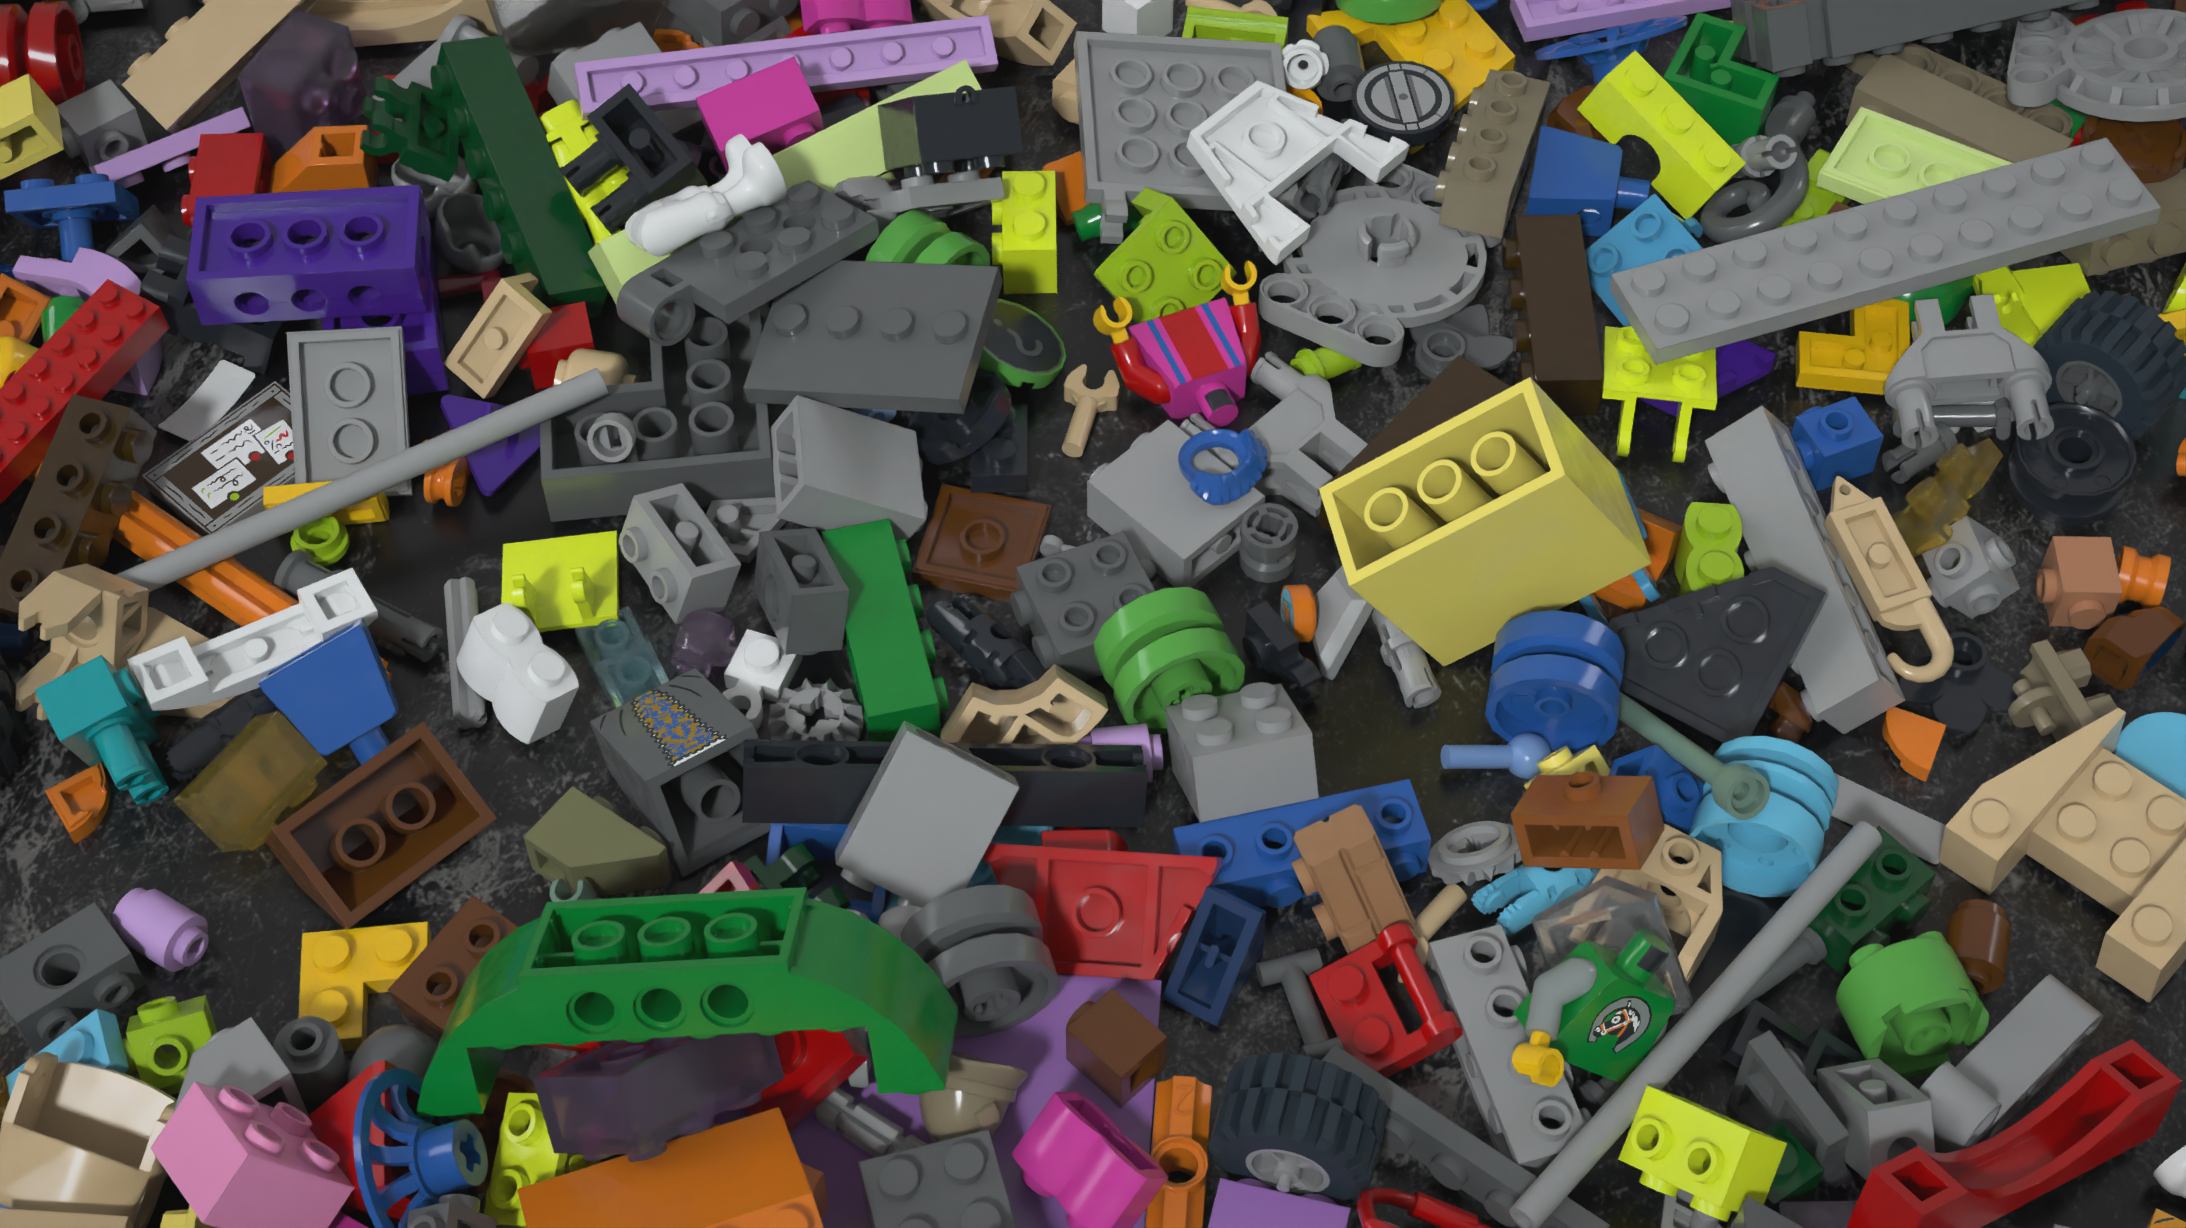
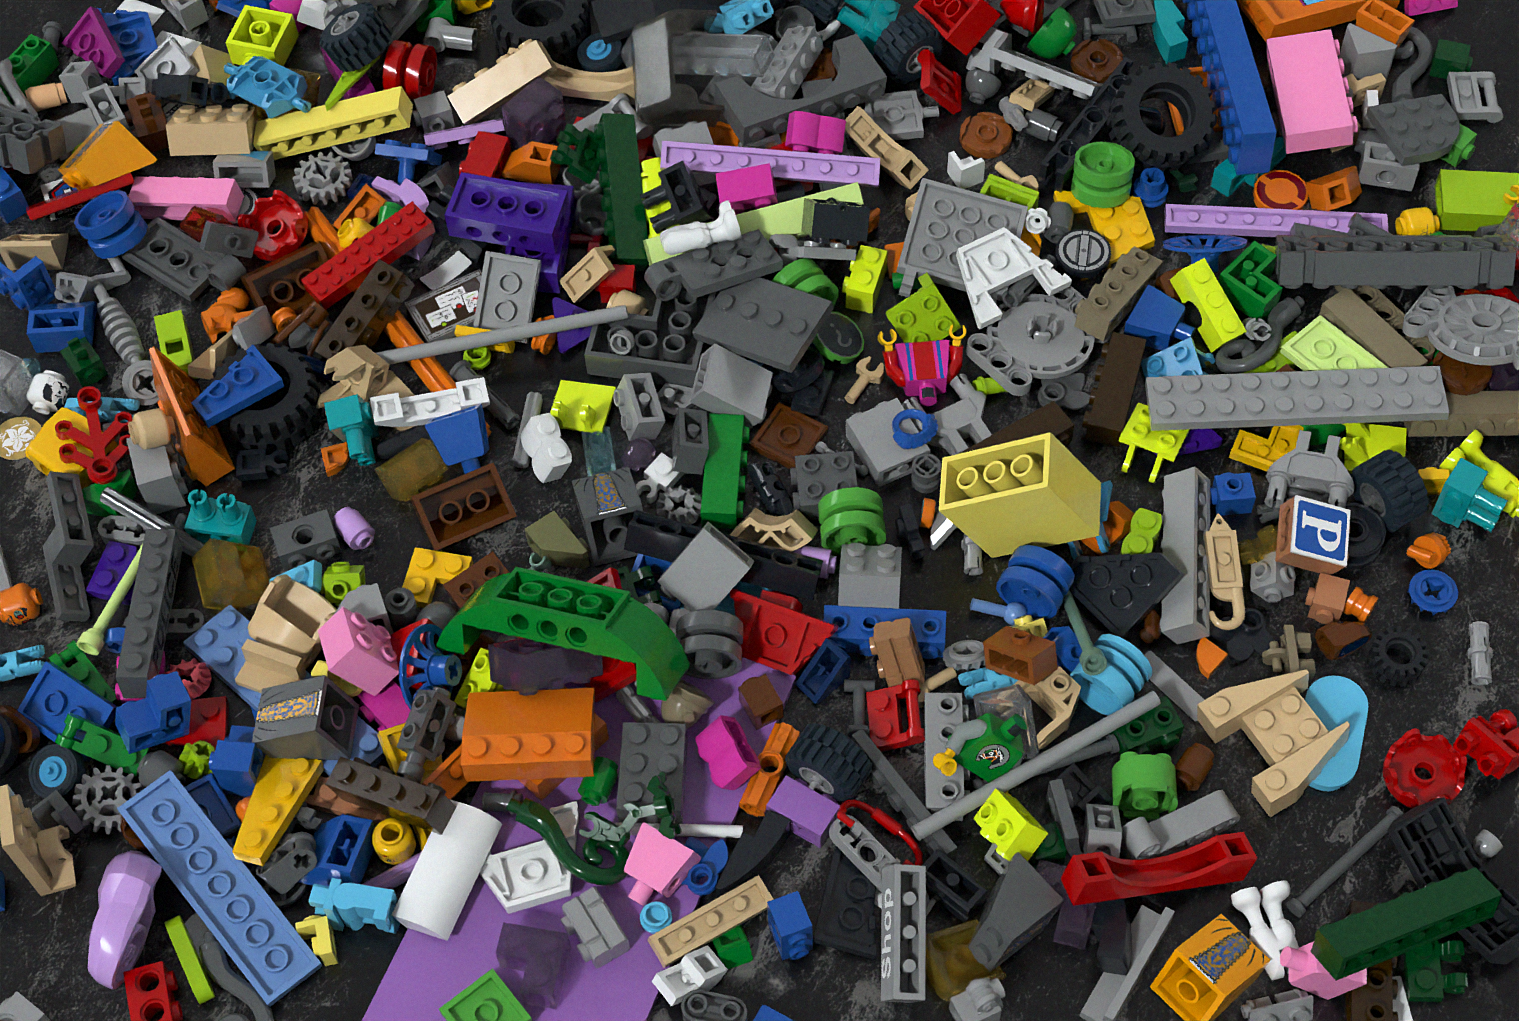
camera: 20 degrees right, 5 degrees up
(2023, 470) = (1313, 535): none -> piece

